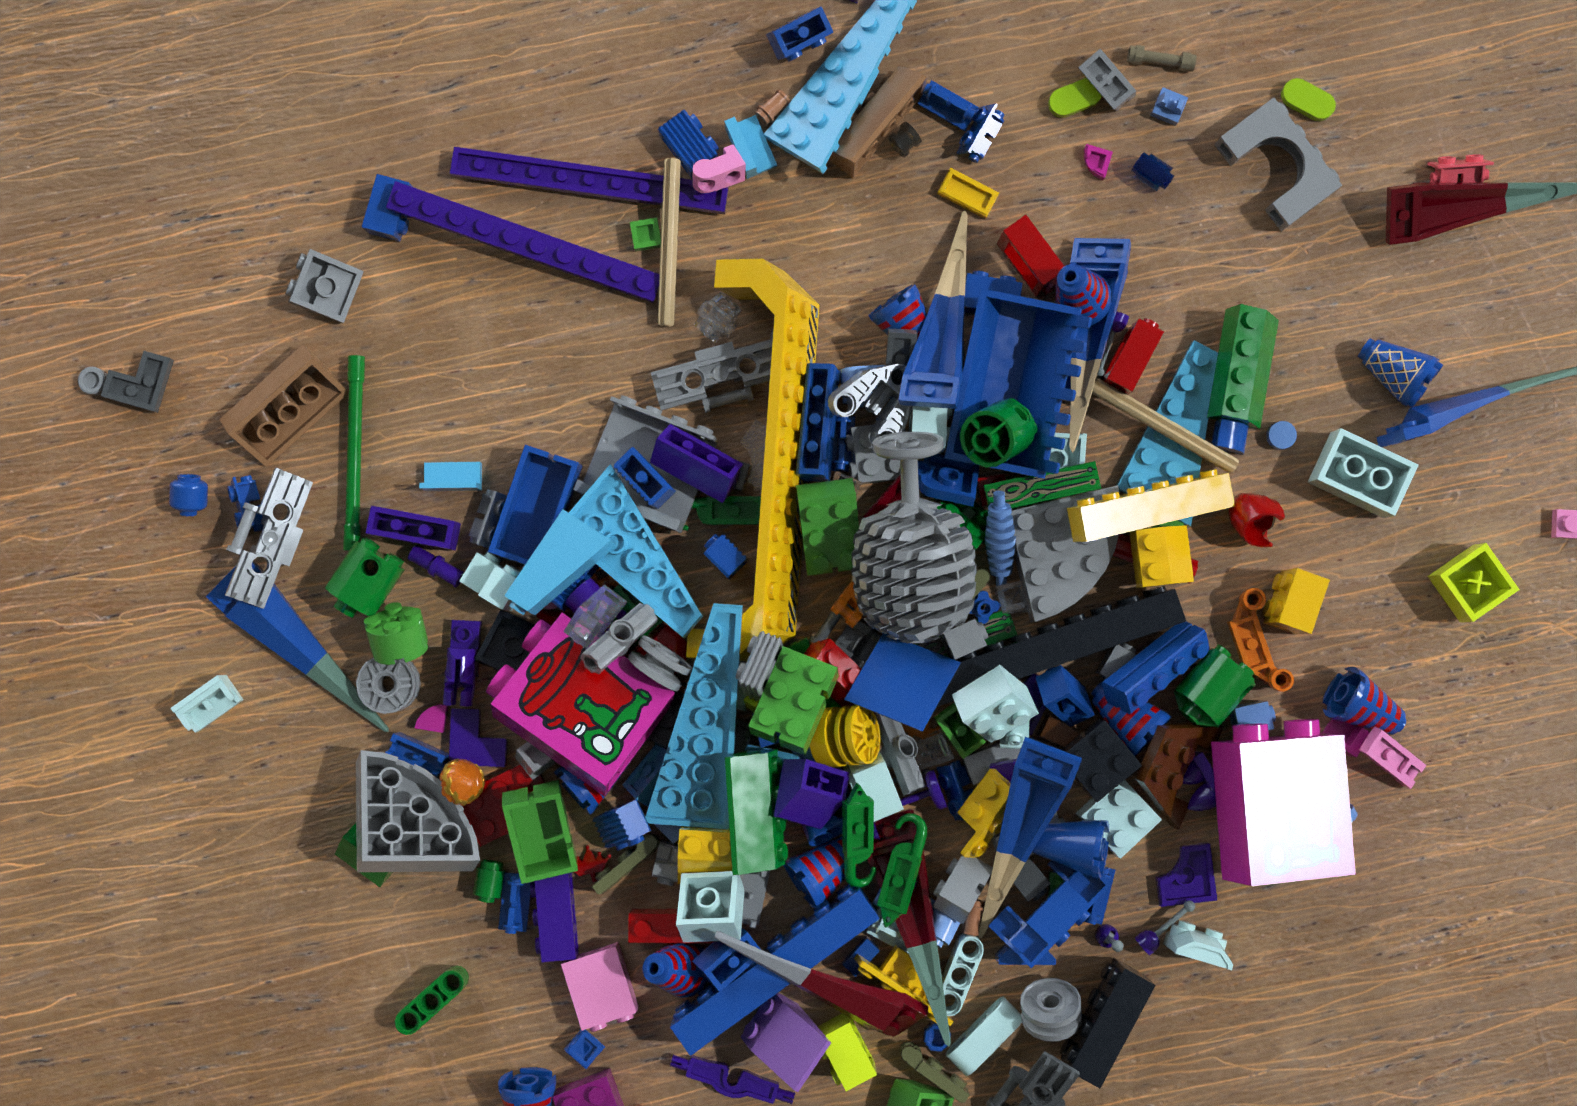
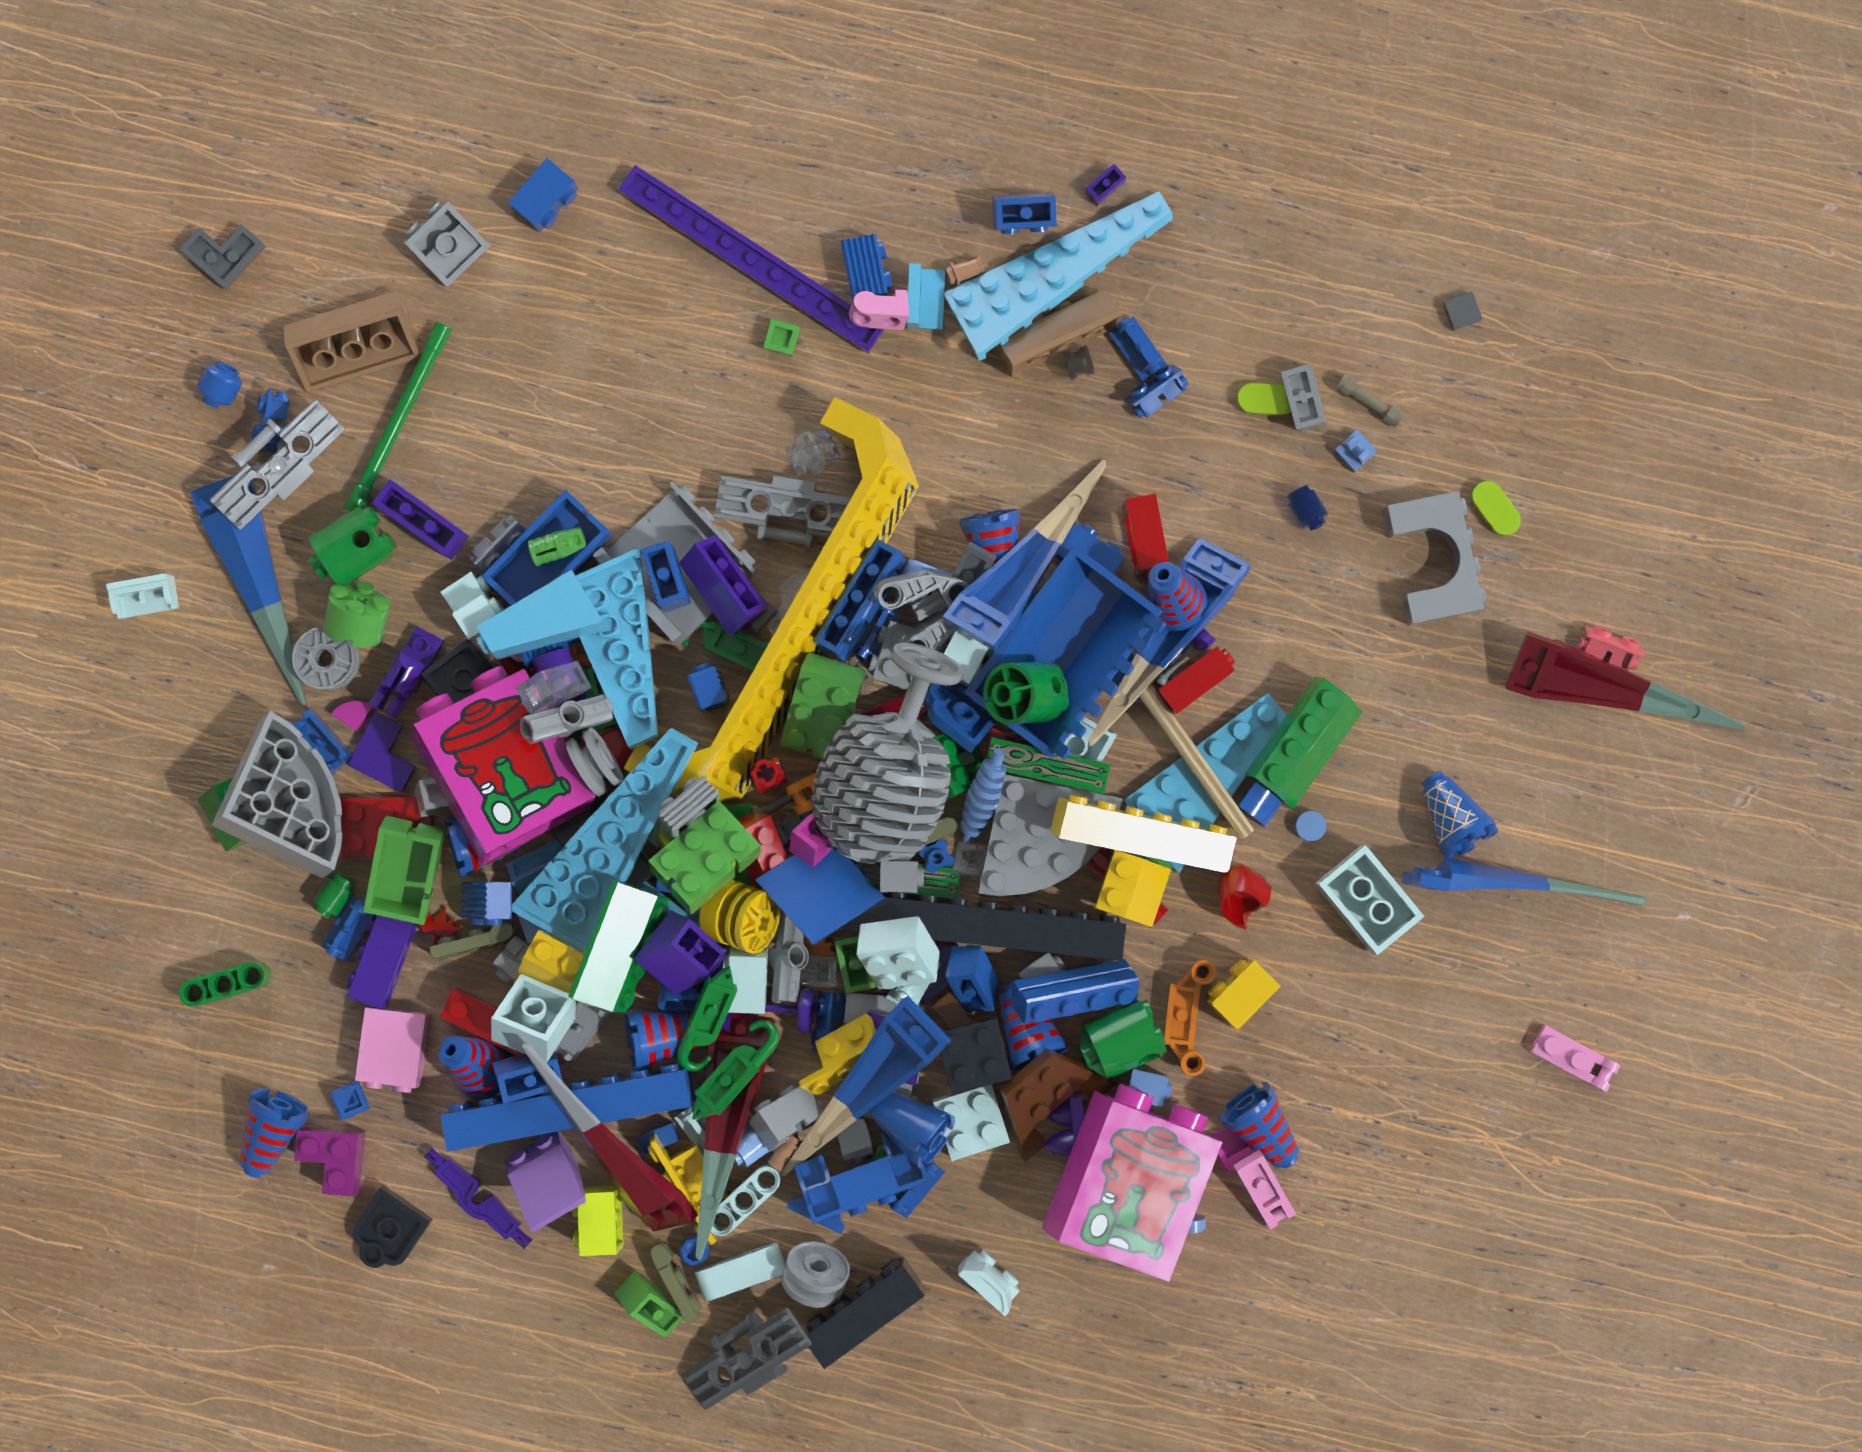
camera: 25 degrees right, 0 degrees up
(92, 380) = (178, 229): light grey tile -> none
(435, 565) = (425, 565): dark purple pin -> none
(452, 476) = (482, 486): medium azure panel -> none
(461, 781) = (352, 786): orange hair -> none
(523, 241) = (659, 291): dark purple plate -> none
(539, 495) = (556, 545): none -> bright green hinge
(669, 242) = (799, 356): tan axle -> none
(811, 604) = (768, 774): none -> red piece
(873, 647) = (809, 843): none -> dark pink panel
(968, 193) = (1116, 444): yellow tile -> none
(1097, 160) = (1259, 471): dark pink tile -> none
(1103, 935) = (907, 1236): dark purple hinge -> none
(1150, 940) = (945, 1255): hinge -> none
(1190, 877) = (1014, 1215): dark purple tile -> none
(1473, 582) = (1426, 1057): neon yellow brick -> none

